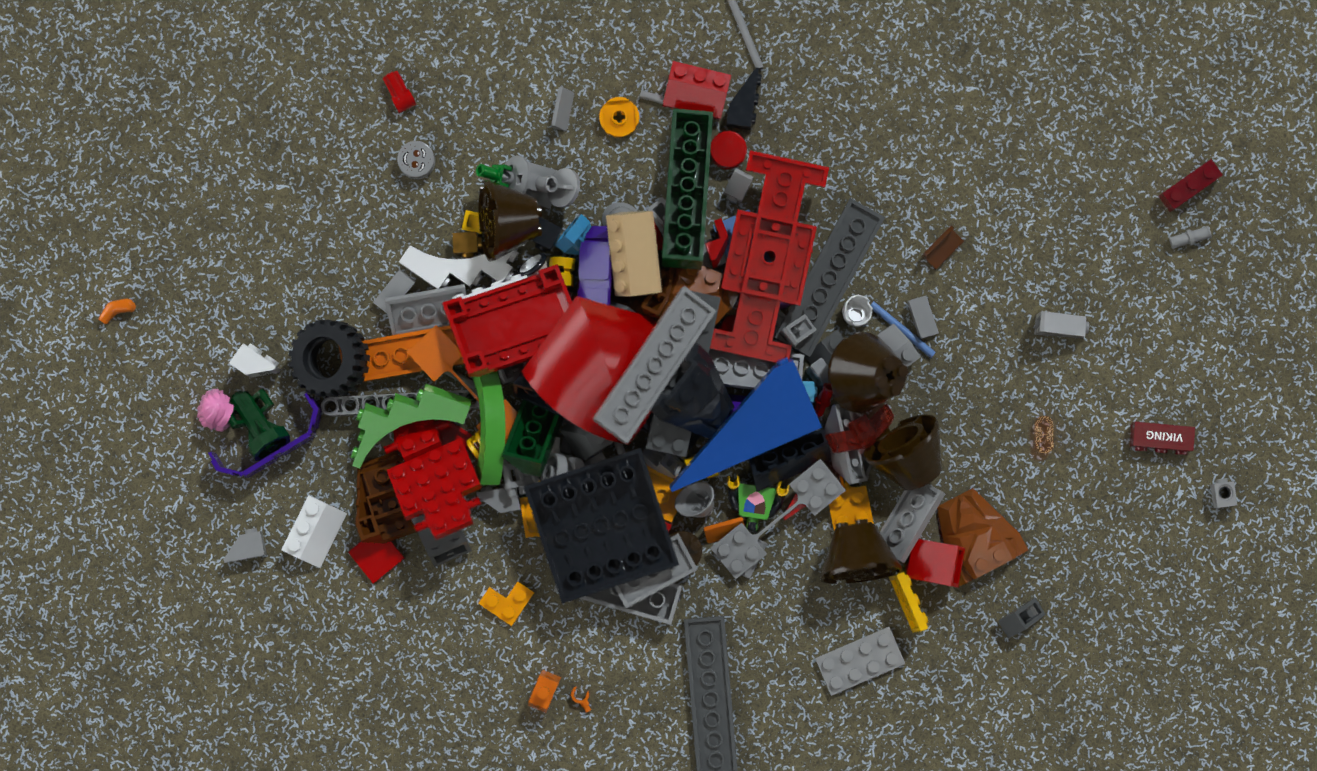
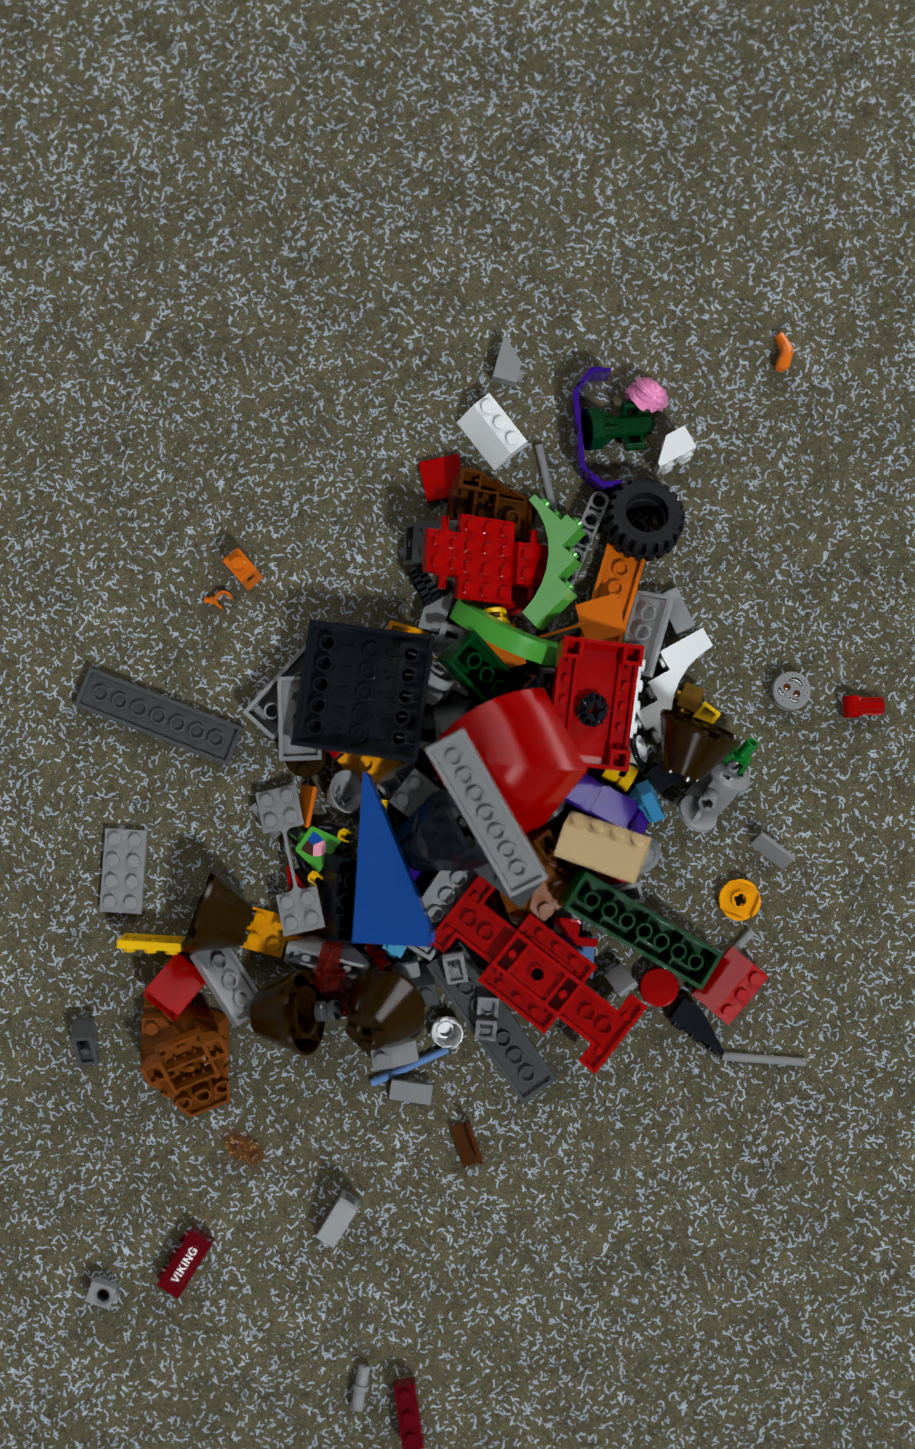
camera: 120 degrees right, 0 degrees up
(330, 464) = (546, 477): none -> light grey bar
(481, 521) = (424, 586): none -> black tyre
(507, 608) = (334, 575): light orange plate -> none
(519, 327) = (586, 704): none -> black gear
(827, 282) = (486, 1017): none -> flat silver slope
(889, 420) = (328, 1010): none -> dark grey wheel
(999, 511) = (190, 1071): none -> dark orange wedge

